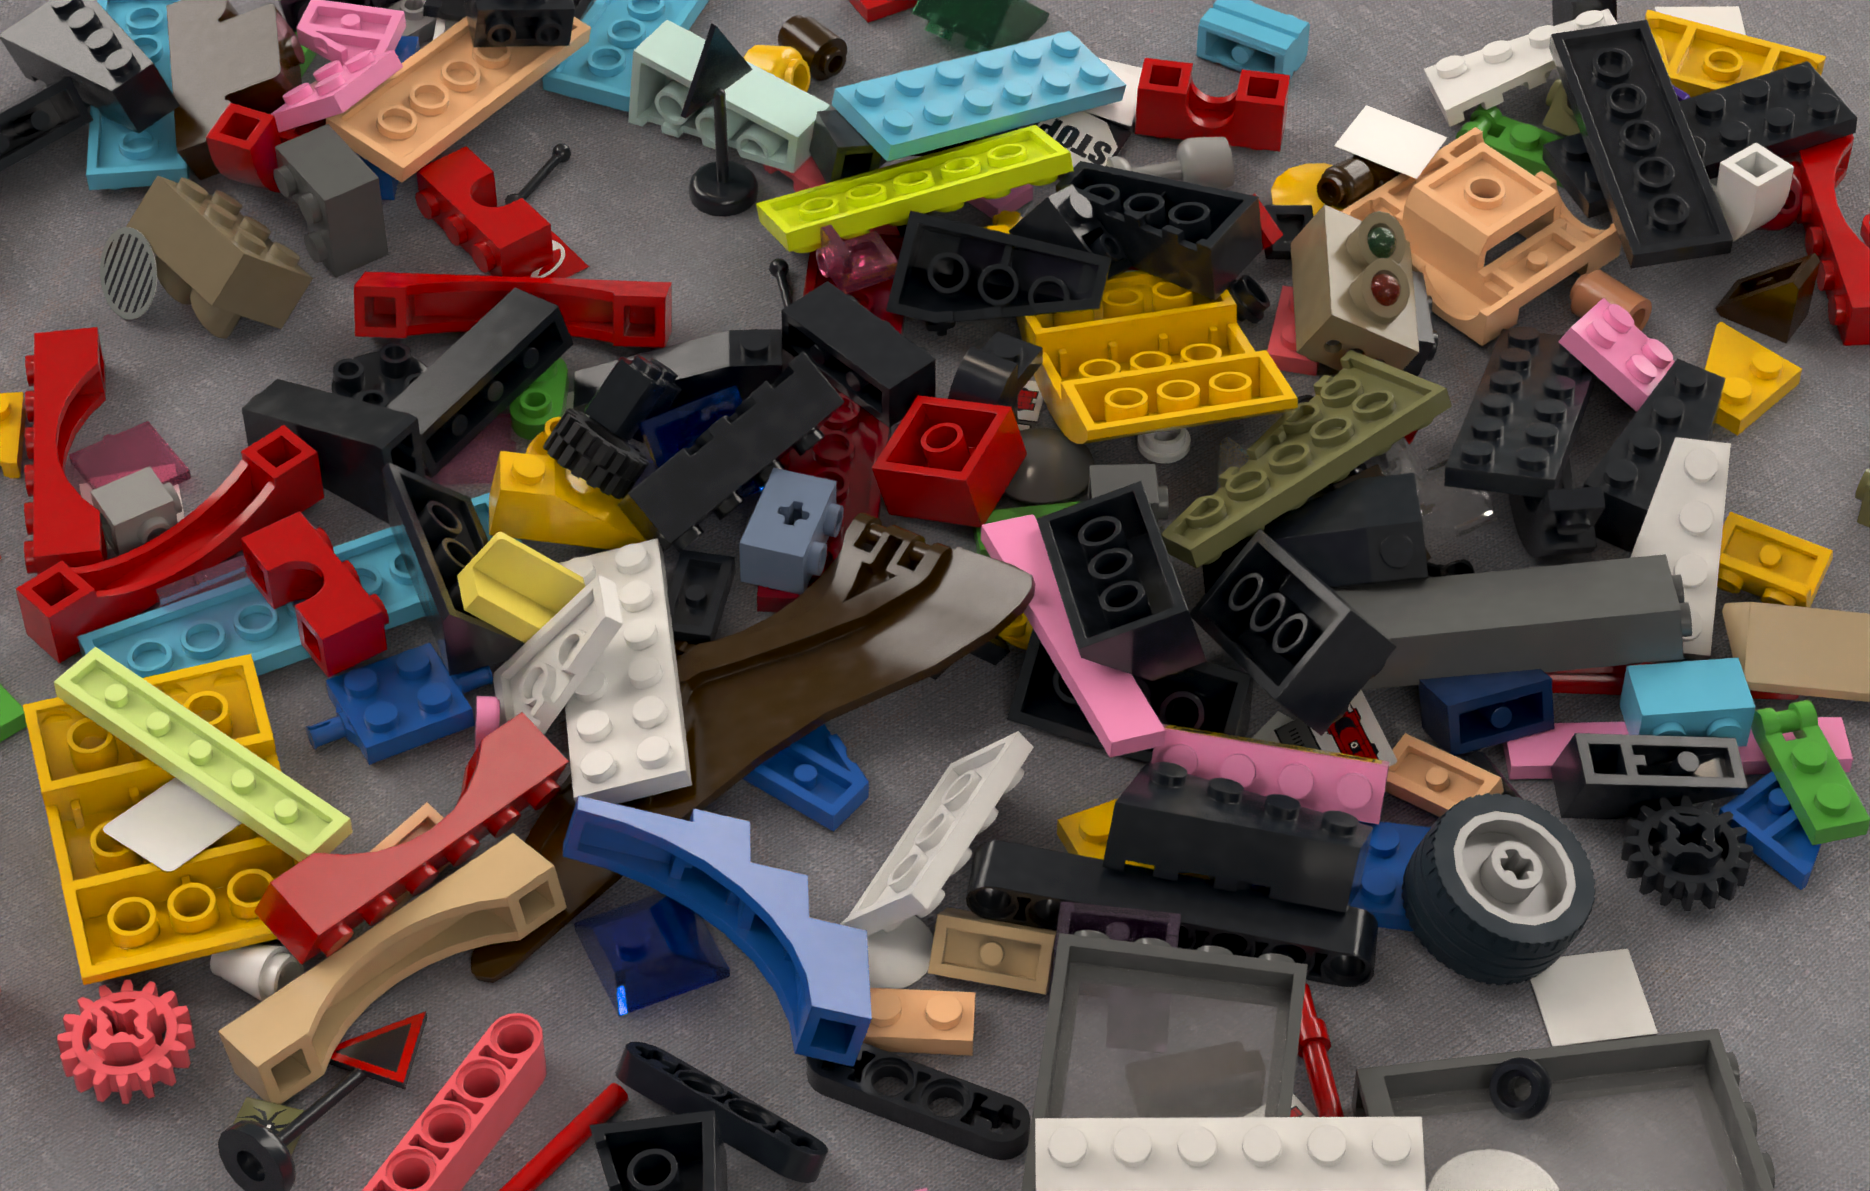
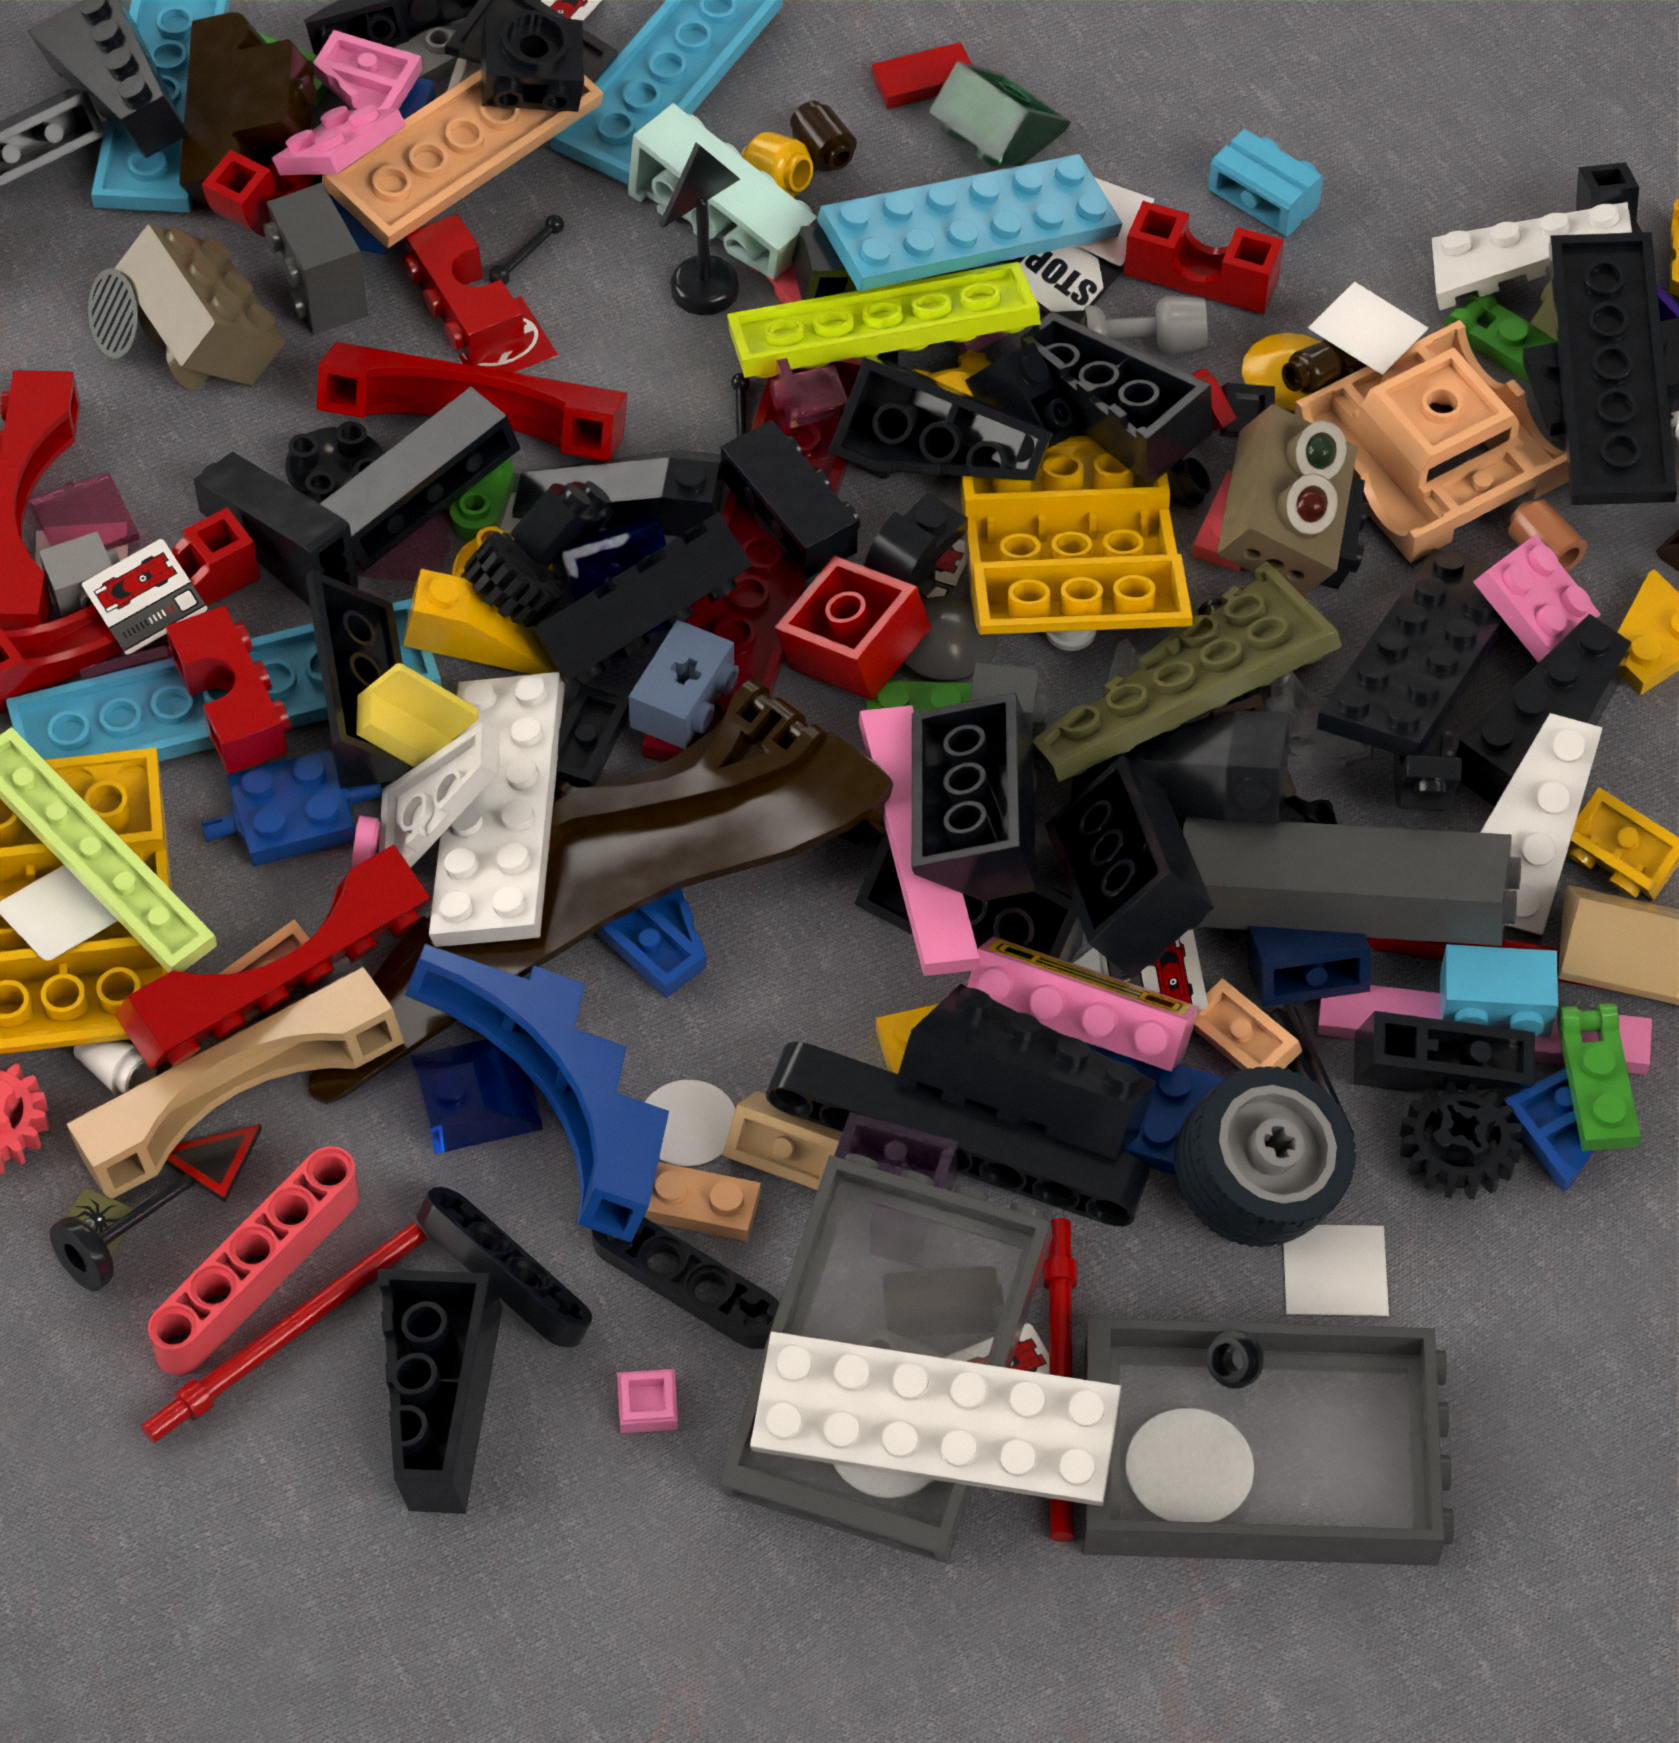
camera: 10 degrees right, 10 degrees up
(207, 519) = (143, 596): none -> sticker
(940, 836) = (757, 1023): white plate -> none

